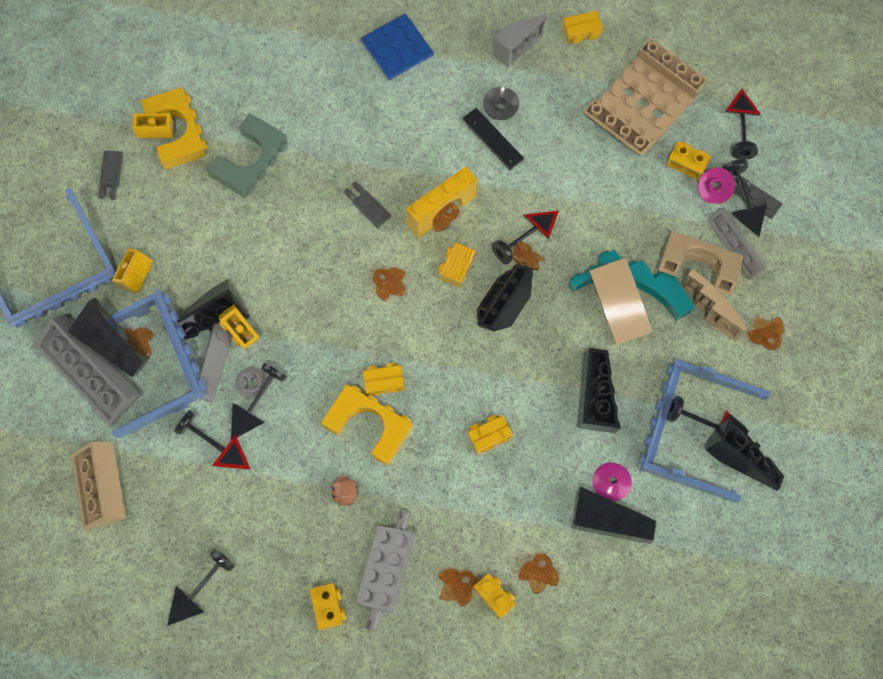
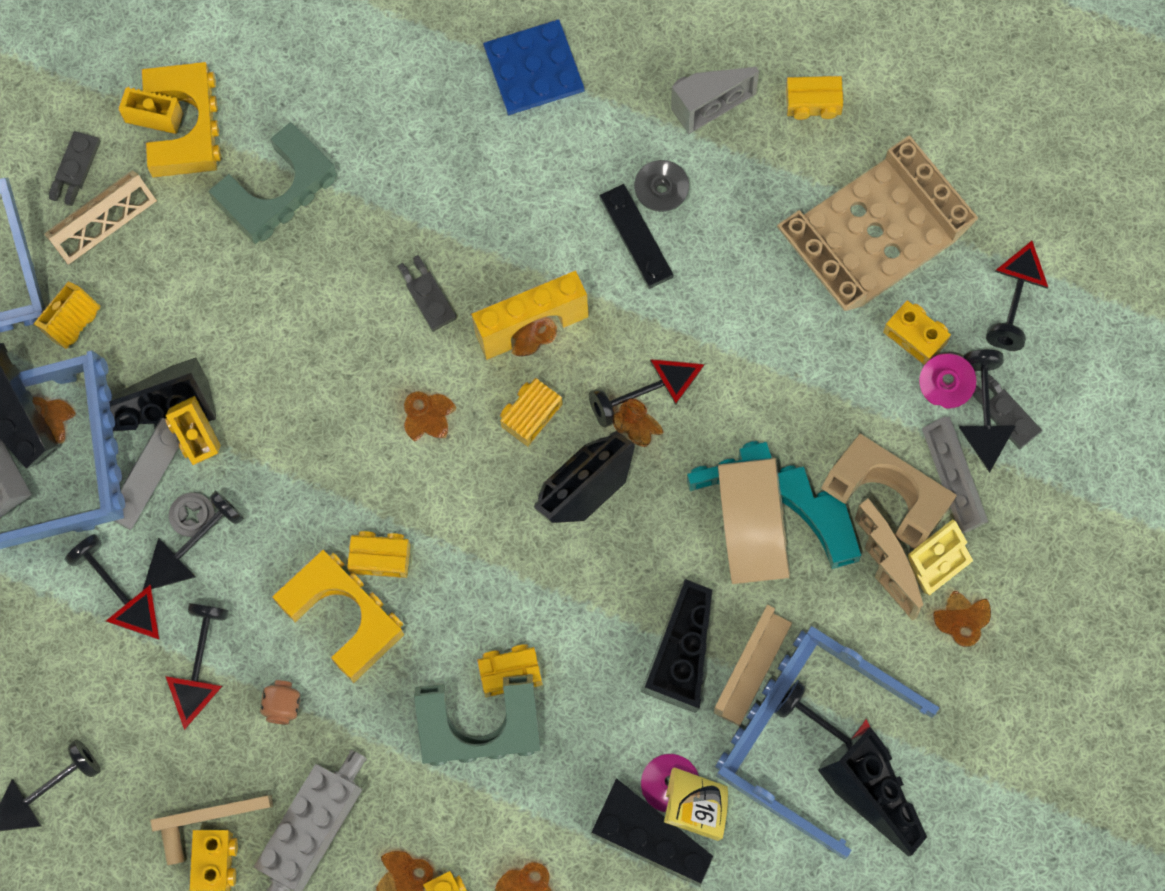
camera: 20 degrees right, 0 degrees up
(132, 197) = (93, 209): none -> tan fence
(282, 500) = (192, 695): none -> black piece
(292, 591) = (170, 825): none -> tan piece
(505, 474) = (444, 742): none -> sand green arch
(635, 490) = (696, 804): none -> light yellow slope
(644, 394) = (752, 667): none -> tan fence
(745, 295) = (940, 557): none -> light yellow slope

